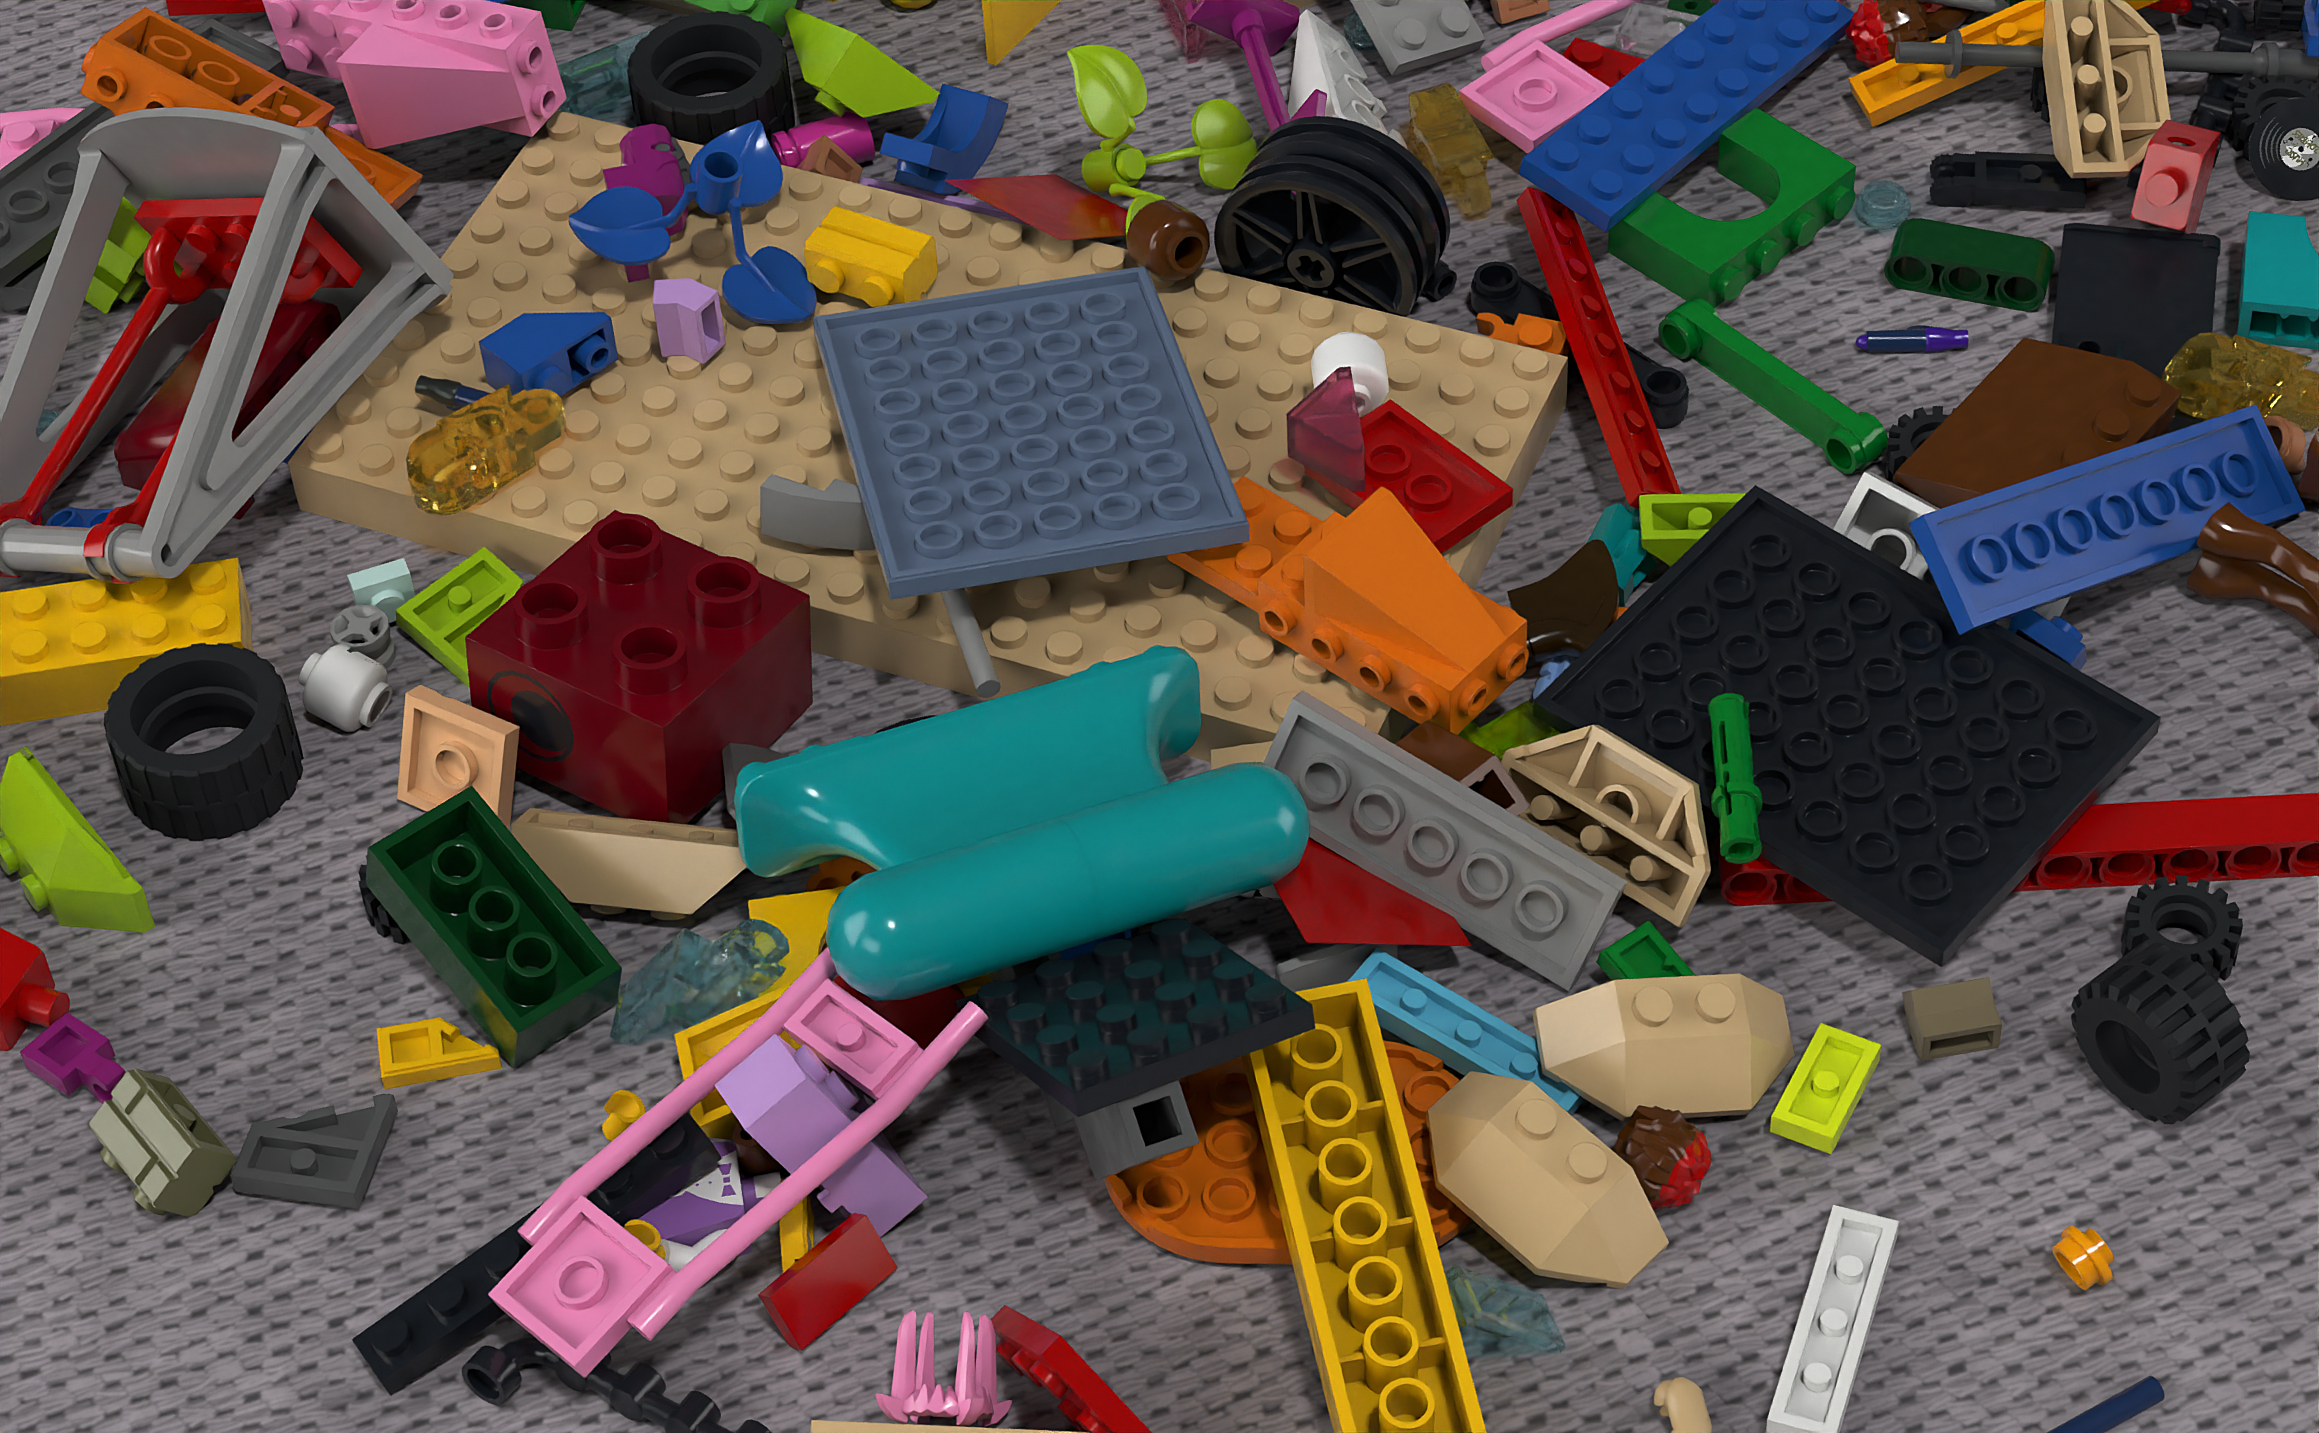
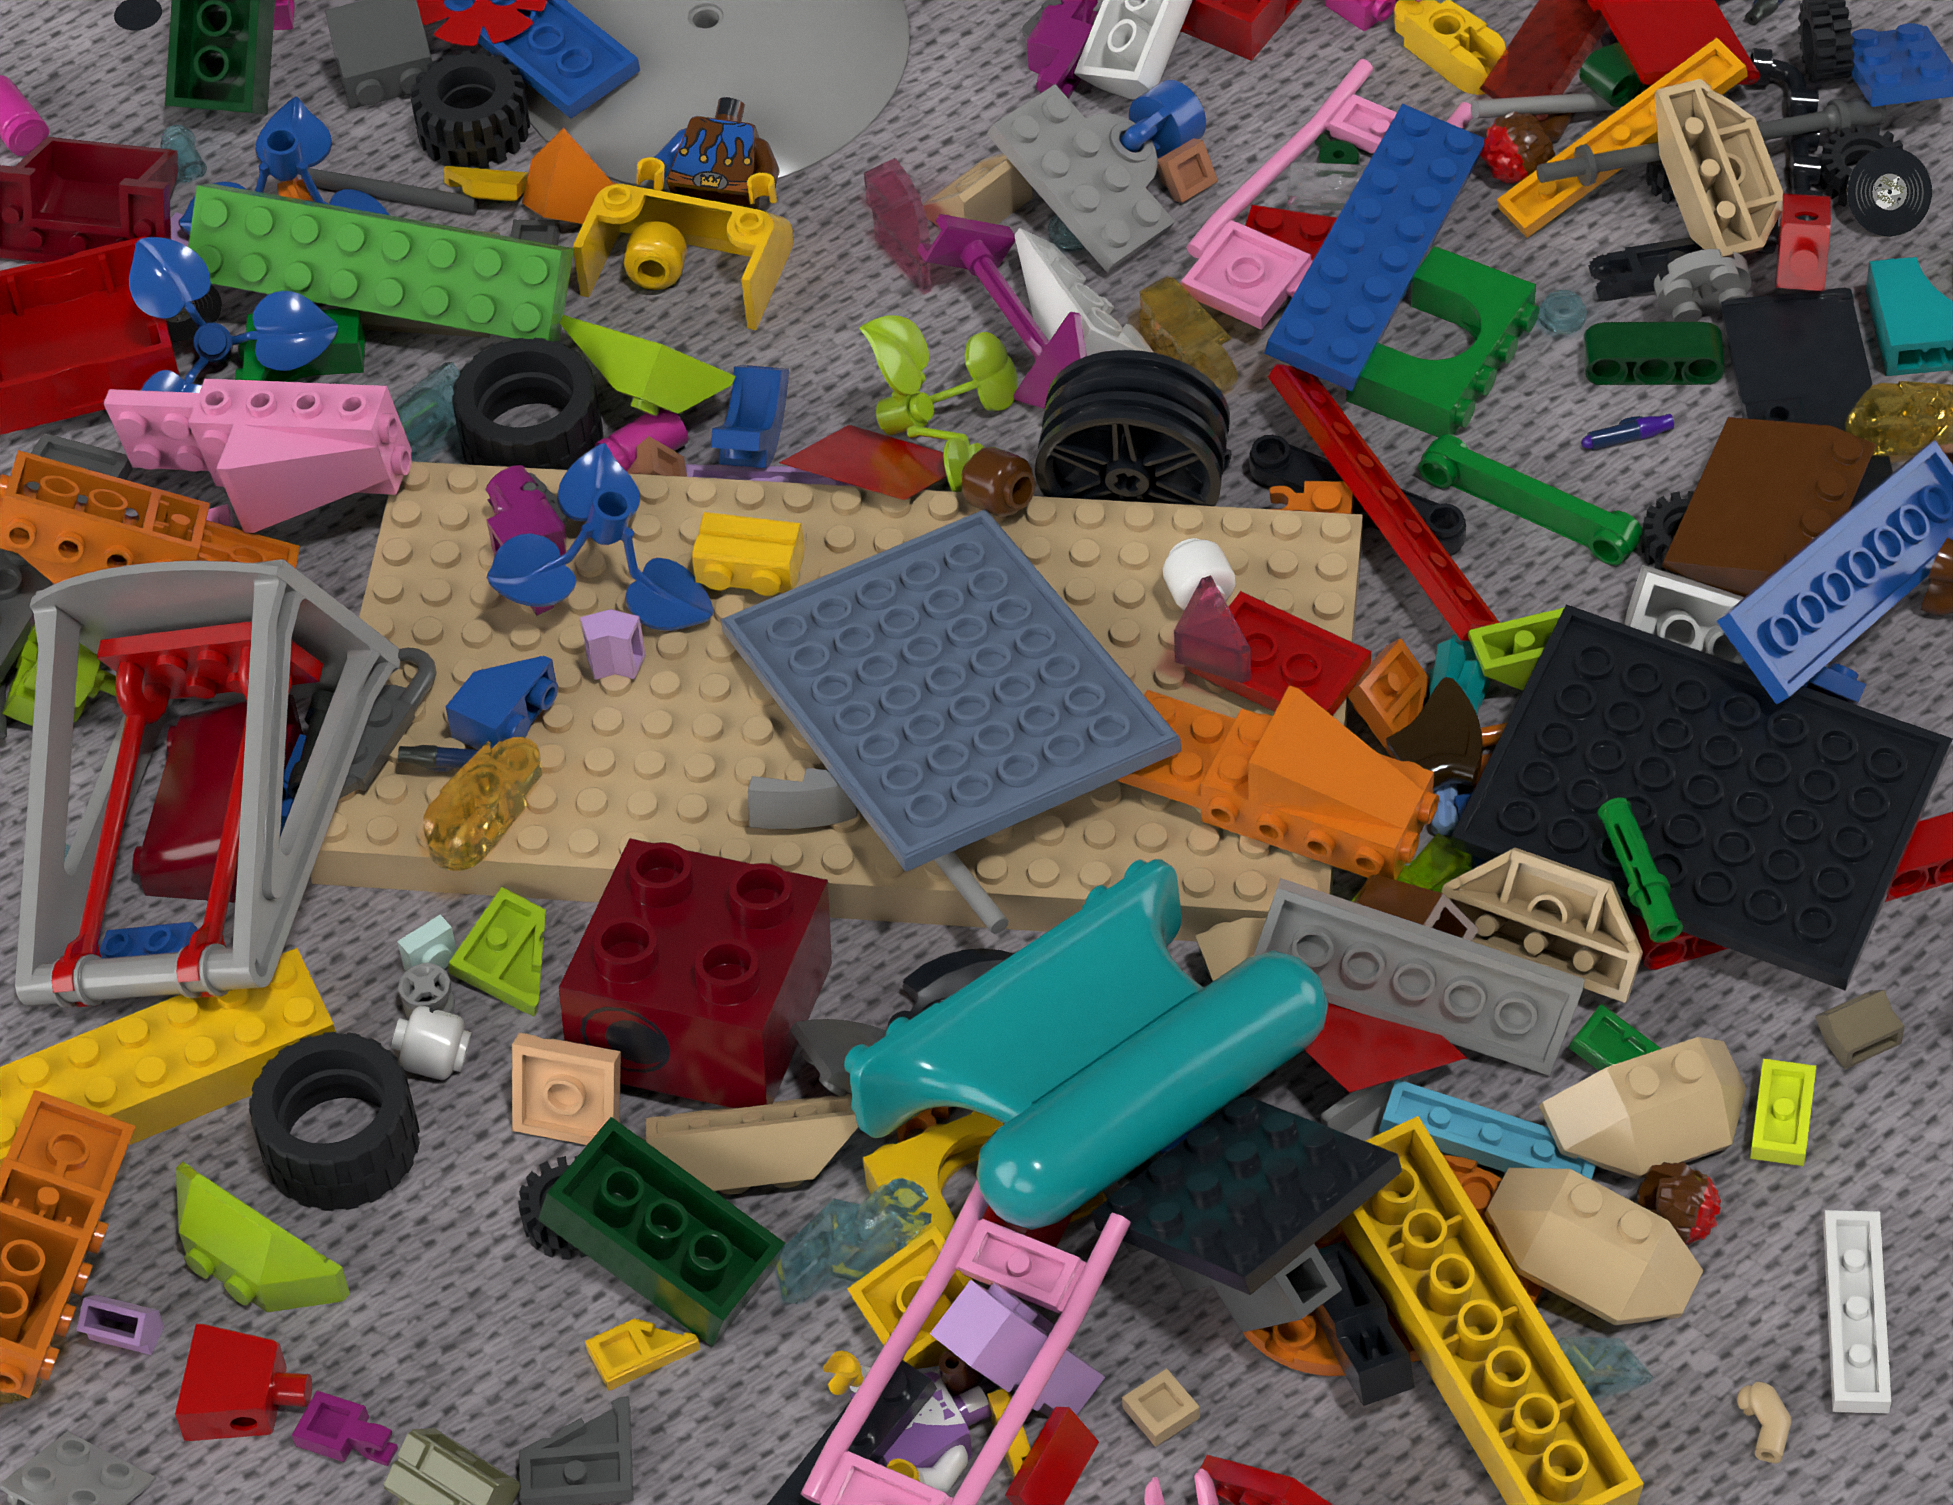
camera: 15 degrees left, 5 degrees up
(416, 350) = (389, 720): none -> dark grey plate
(979, 1245) = (1161, 1407): none -> tan plate
(1228, 1202) = (1360, 1331): none -> black slope
(1532, 543) = (1390, 691): none -> orange wing
(2072, 196) = (1700, 284): none -> light grey plate

